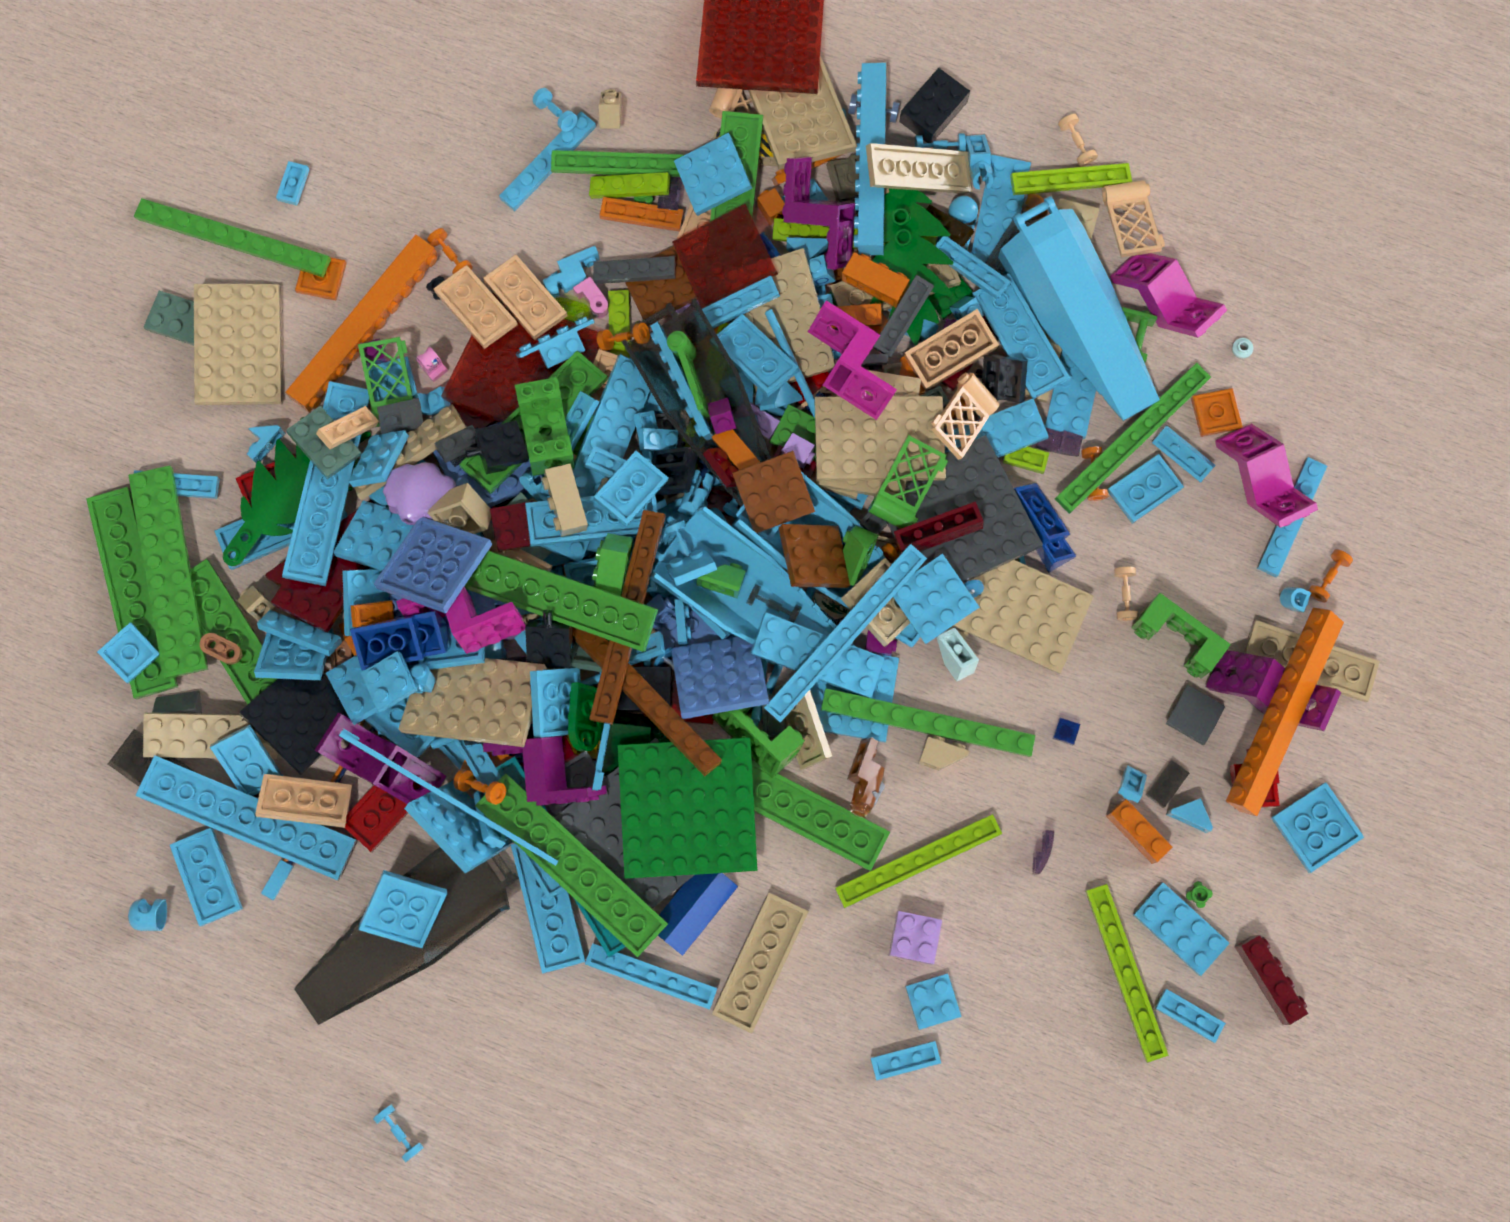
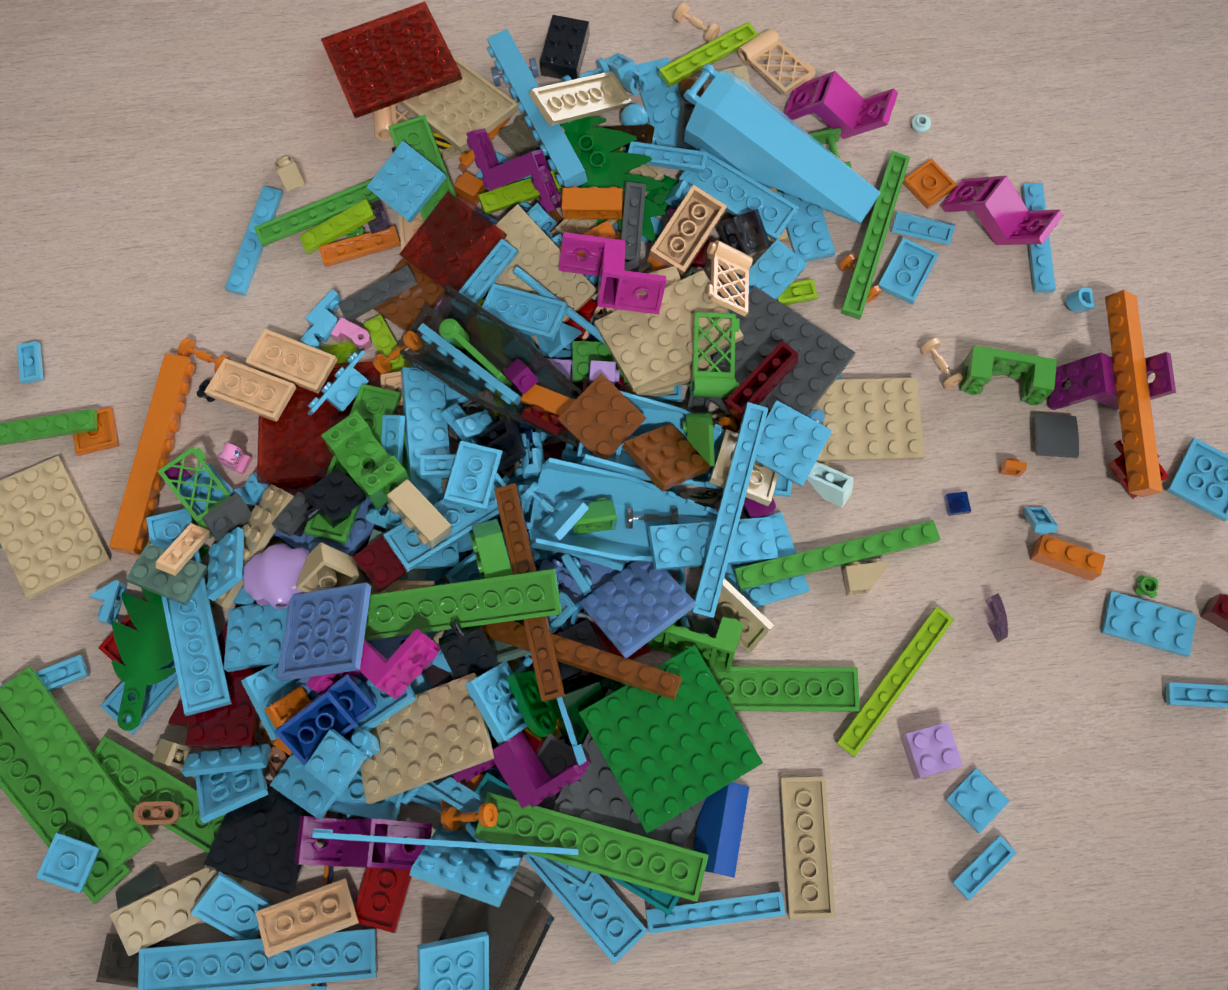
camera: 25 degrees left, 5 degrees down
(566, 120) = (224, 191): medium azure wheel -> none
(813, 246) = (525, 201): medium azure slope -> none
(867, 778) = (812, 629): dark orange plate -> none
(1047, 525) = (864, 358): blue slope -> none
(1061, 443) = (818, 267): clear purple slope -> none
(1126, 973) = (1128, 687): lime plate -> none
(1137, 723) = (1013, 467): none -> orange plate
(1167, 784) = (1066, 505): clear smoke plate -> none
(1192, 814) = (1103, 520): medium azure slope -> none
(1341, 558) = (1097, 250): orange wheel -> none
(1344, 669) = (1157, 337): tan plate -> none

